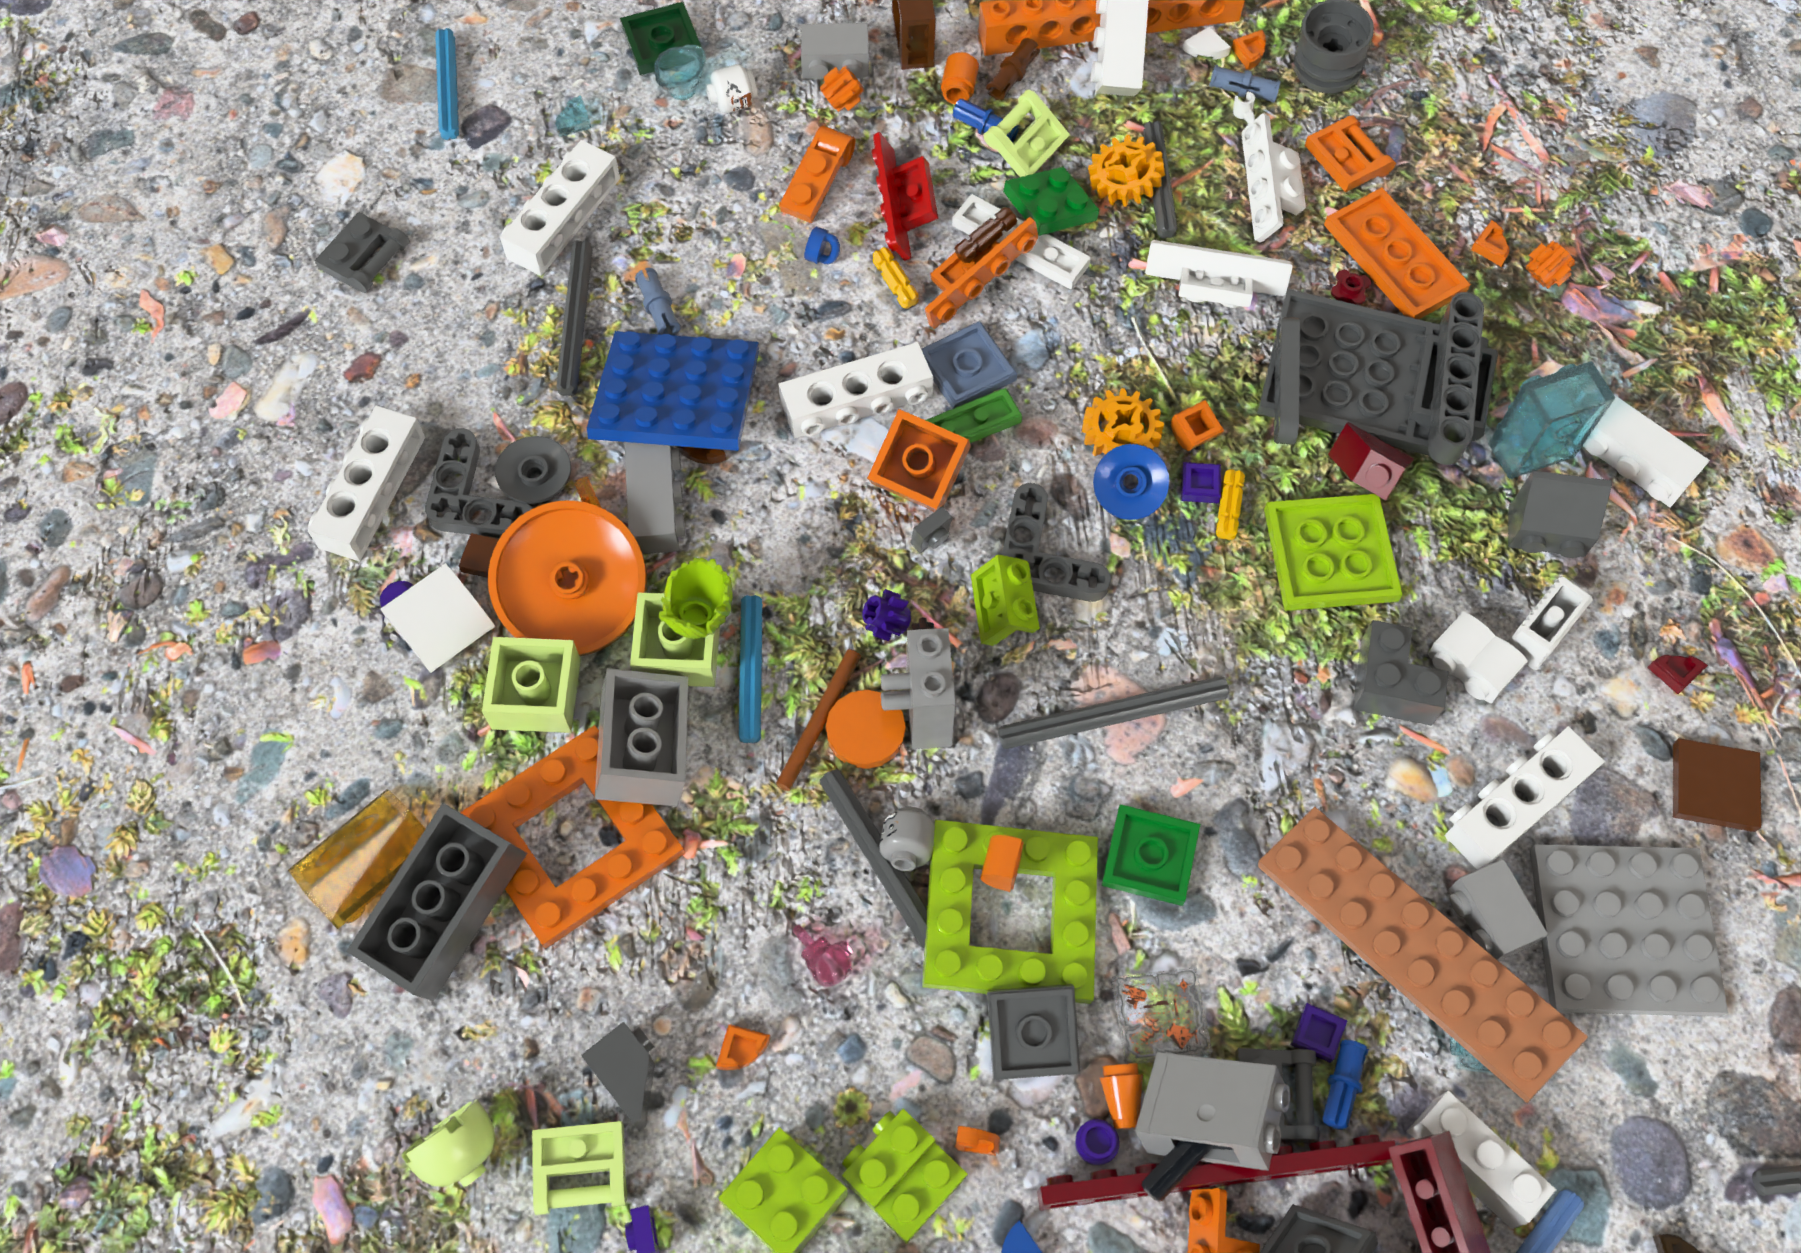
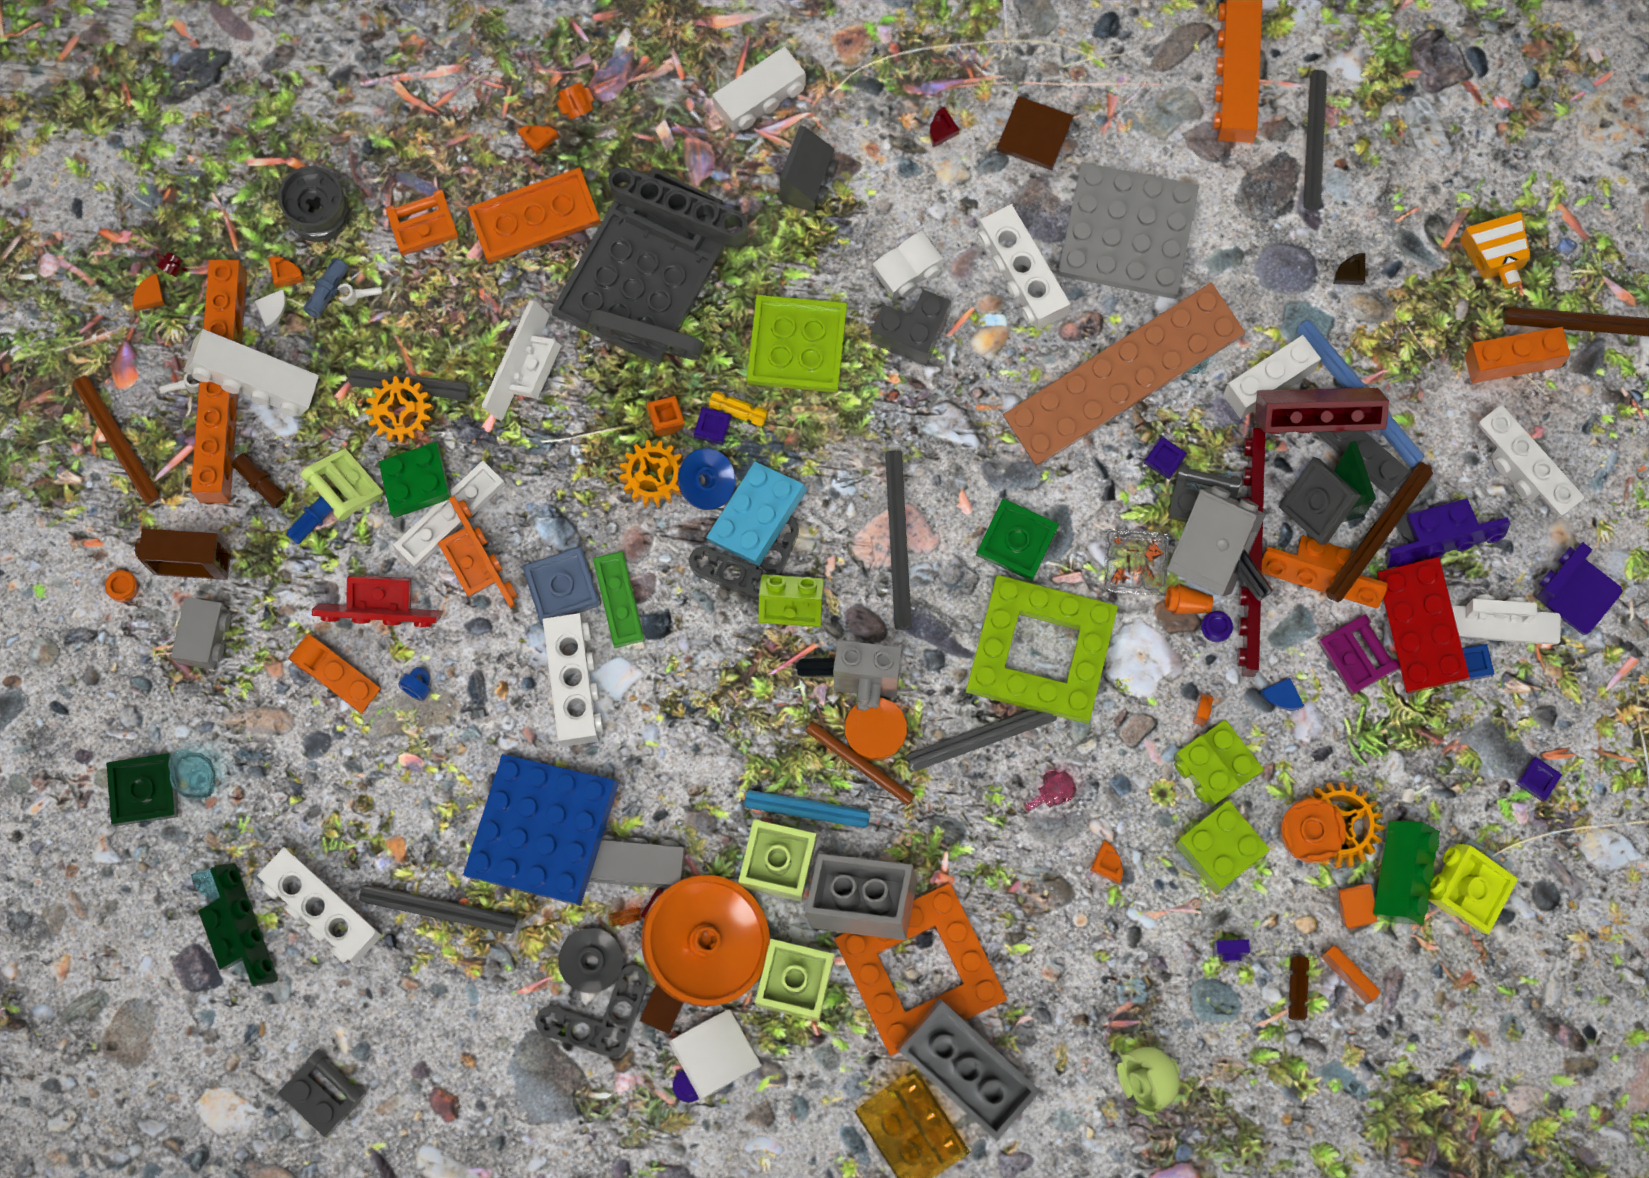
camera: 75 degrees left, 10 degrees up
(352, 533) = (533, 1071): white brick -> none
(447, 84) = (142, 998): dark azure axle -> none
(529, 143) = (234, 928): none -> dark green bracket
(574, 1152) = (1166, 990): yellowish green plate -> none
(625, 1070) = (1114, 947): dark grey slope -> none
(657, 302) = (440, 834): sand blue pin -> none
(697, 598) = (767, 829): lime hair -> none
(732, 88) = (220, 733): white head -> none
(842, 89) = (249, 634): orange gear -> none
(886, 615) = (786, 693): dark purple gear -> none
(895, 278) = (460, 627): yellow axle -> none
(907, 838) = (976, 712): light grey head -> none
(919, 461) = (659, 639): orange brick -> none
(932, 530) = (717, 643): dark grey plate -> none
(959, 77) = (259, 529): orange brick -> none
(985, 235) = (449, 540): reddish brown axle -> none
(1002, 862) = (1014, 643): orange brick -> none
(1033, 1032) = (1134, 652): dark grey tile -> none
(1103, 544) = (756, 513): none -> medium azure plate
(1272, 178) = (433, 292): white bracket -> none
(1344, 293) = (558, 269): dark red plate -> none
(1345, 1084) = (1206, 450): blue axle -> none
(1369, 460) = (728, 292): dark red slope -> none
(1496, 911) = (1105, 313): light grey brick -> none
(1550, 419) = (730, 150): clear light blue brick -> none
(1550, 621) = (894, 206): white brick -> none

